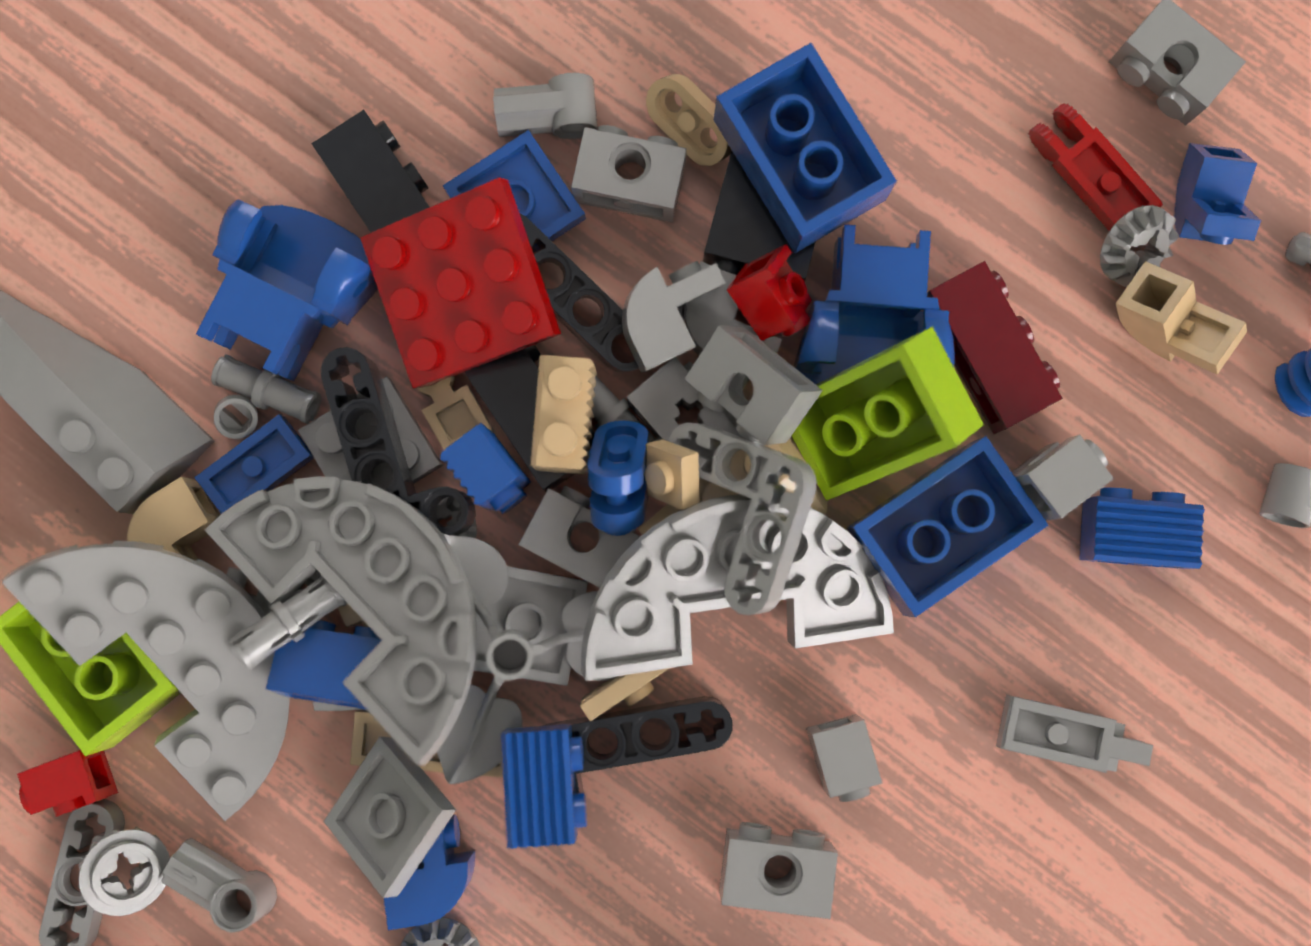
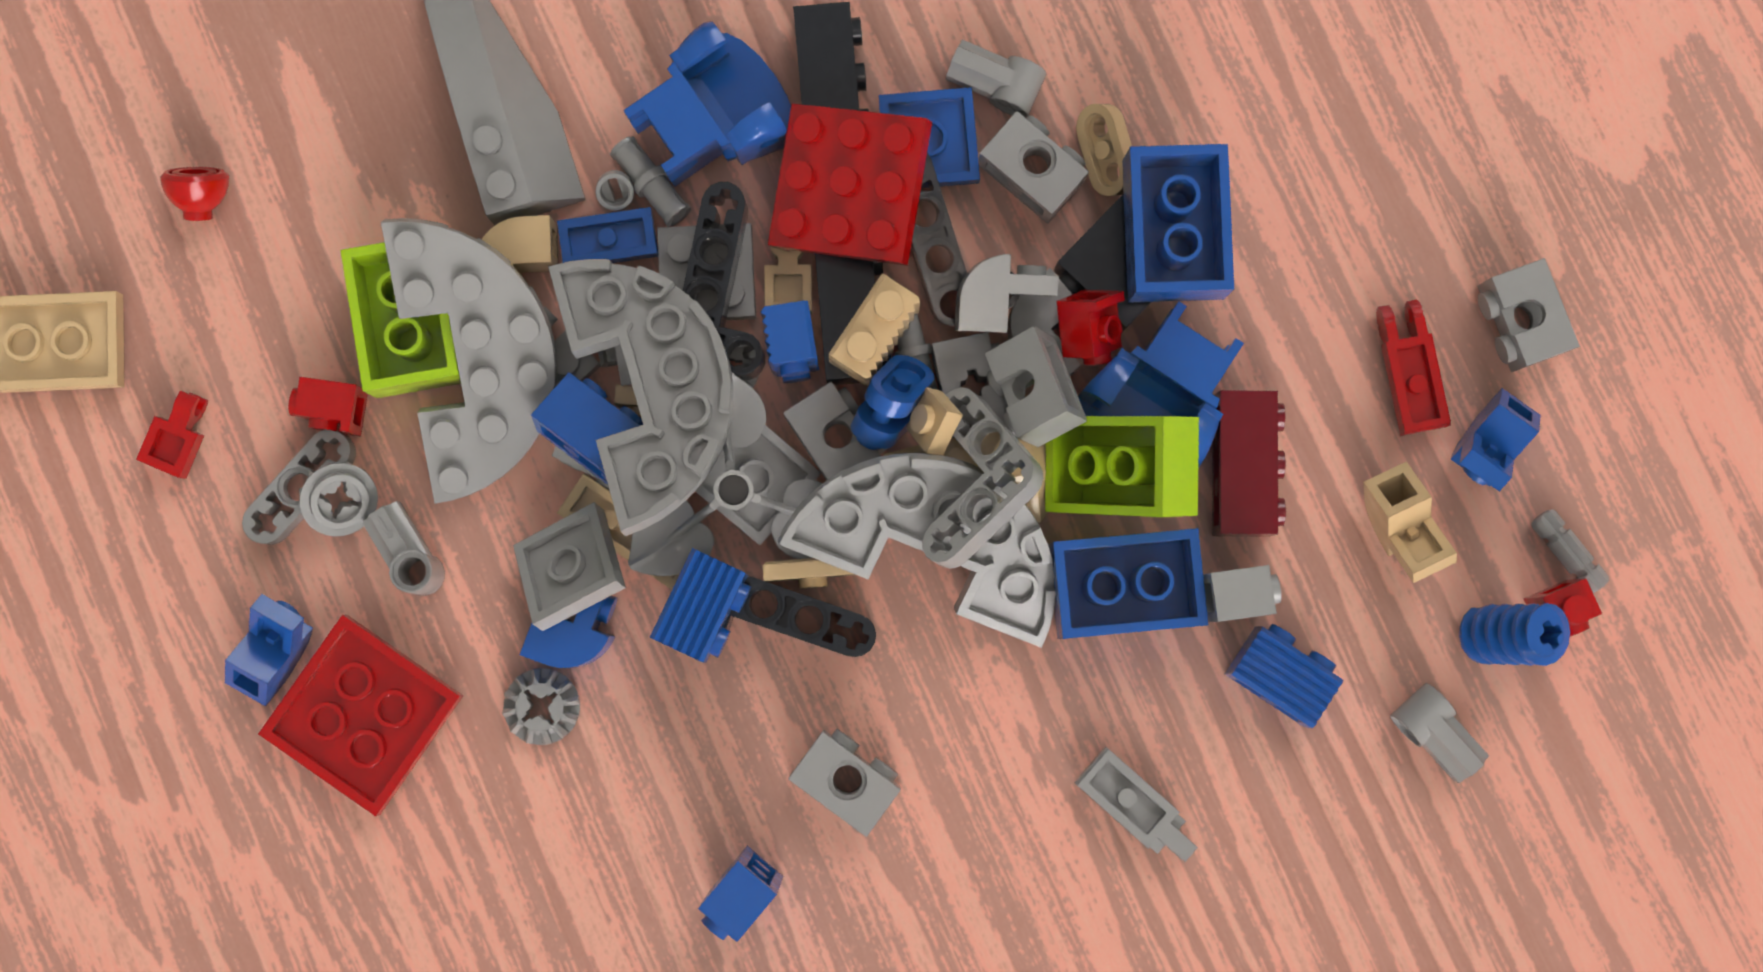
camera: 25 degrees right, 0 degrees up
(286, 622) = (575, 372): light grey pin -> none
(844, 758) = (947, 723): light grey brick -> none
(1134, 229) = (1413, 432): light grey gear -> none

